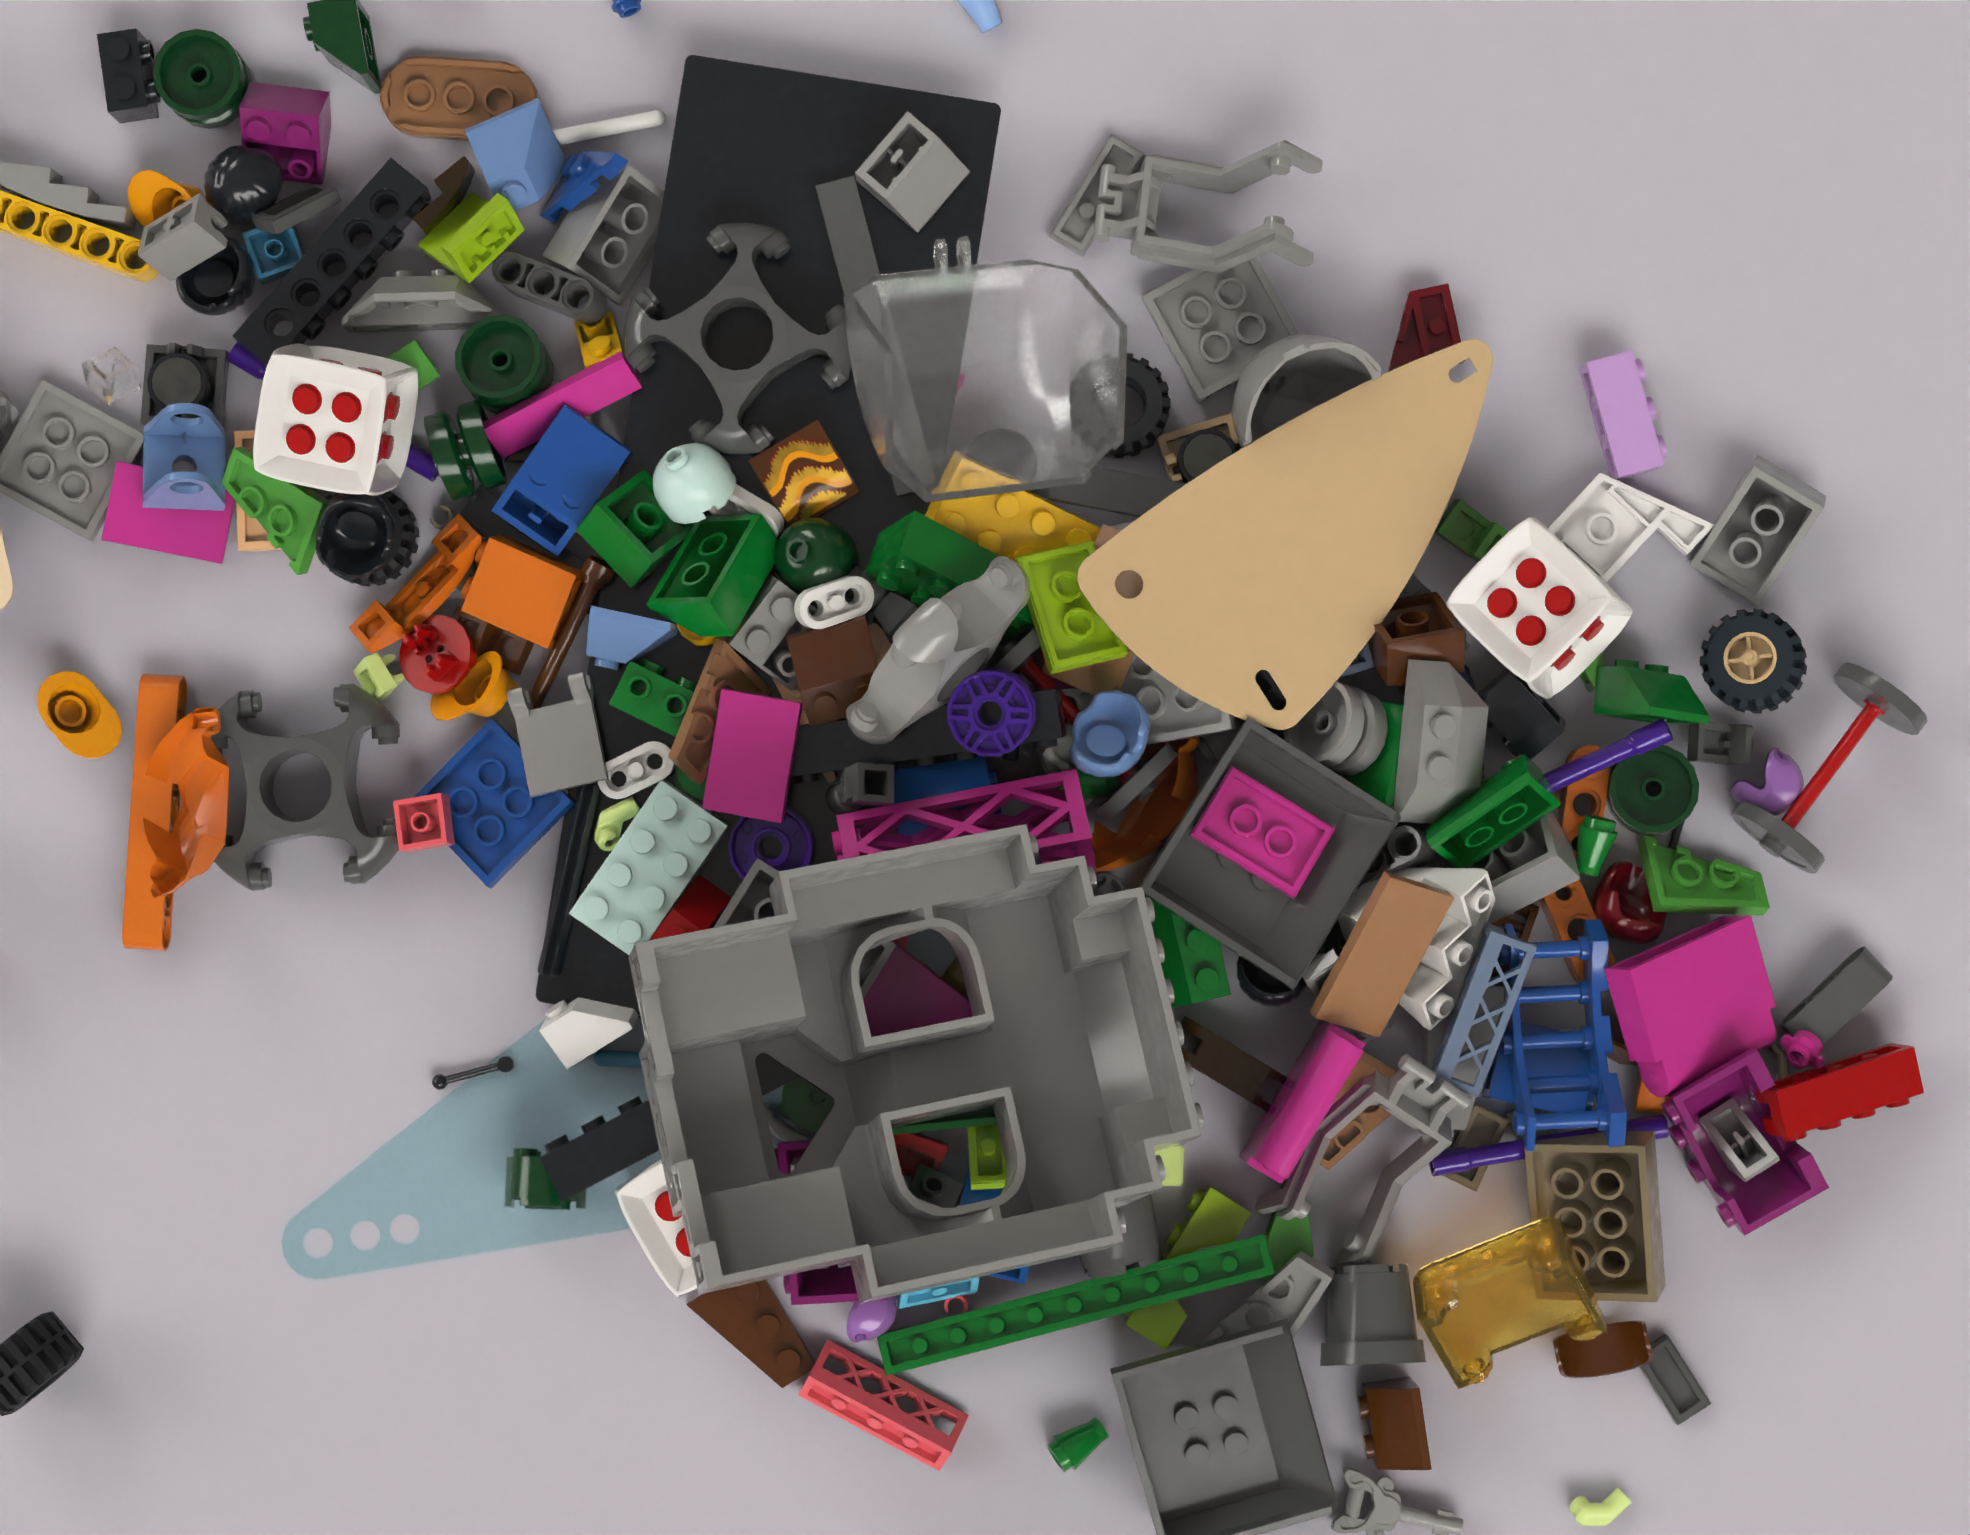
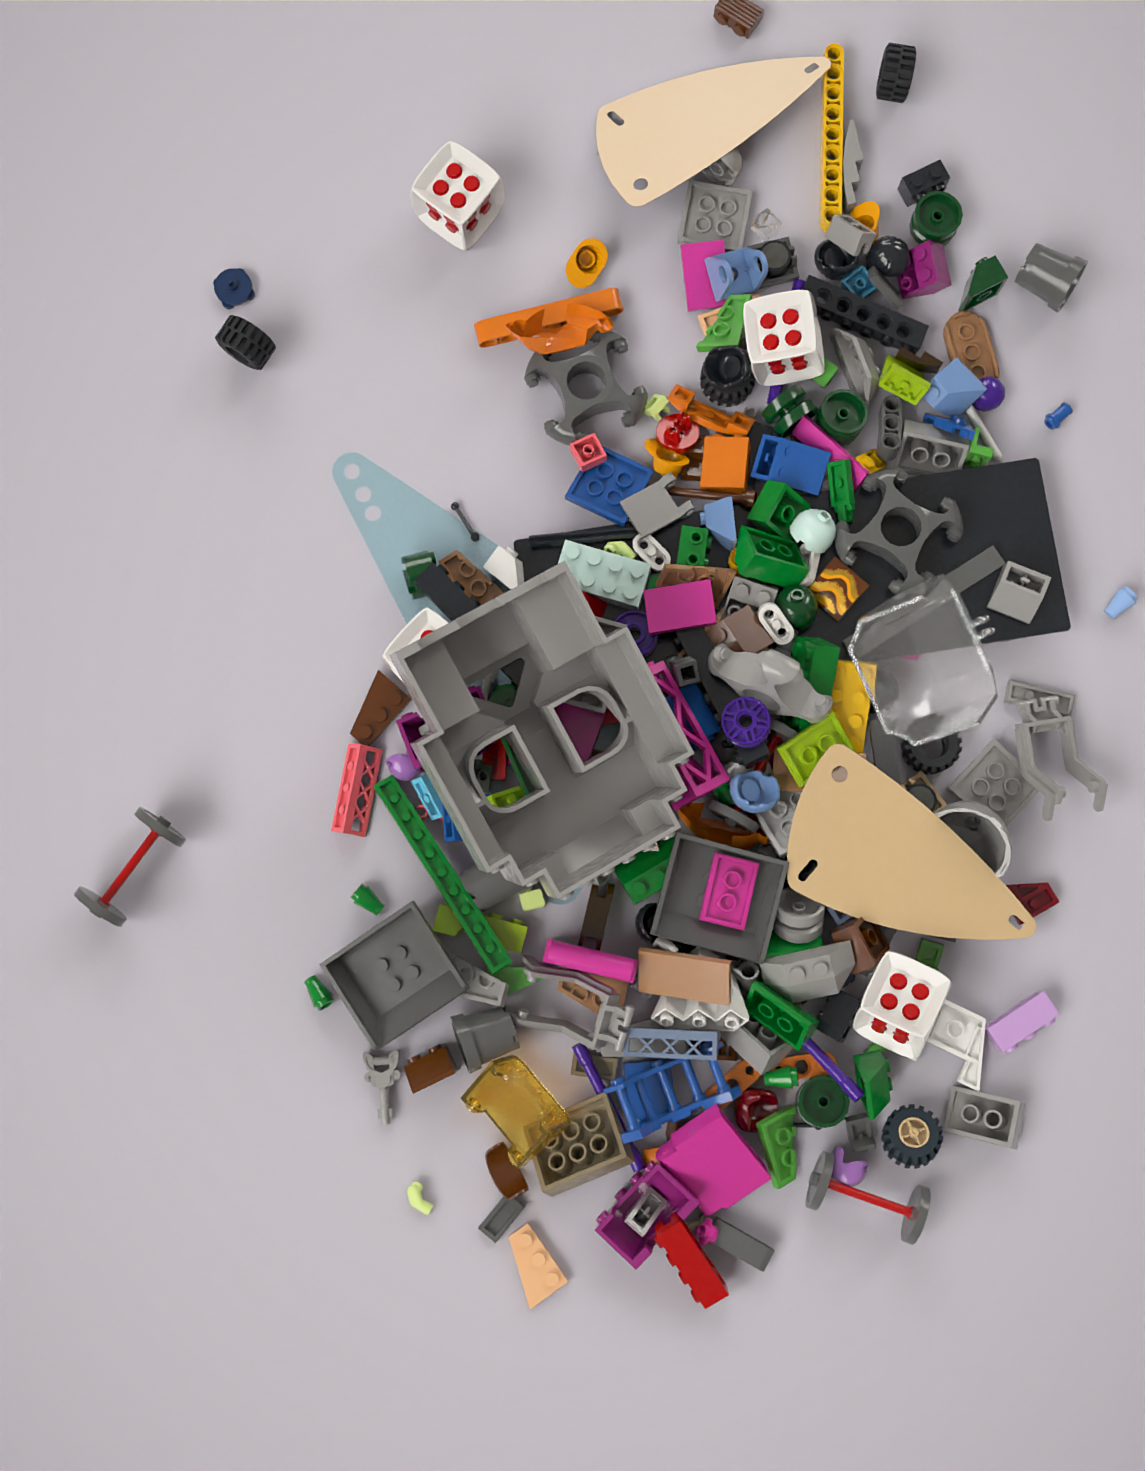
camera: 75 degrees right, 5 degrees down
(550, 88) = (992, 396): none -> dark purple hair
(584, 1095) = (472, 579): none -> medium nougat wing
(635, 409) = (841, 489): none -> green hinge
(648, 155) = (977, 454): none -> bright green panel
(1767, 1347) = (535, 1265): none -> light nougat wing

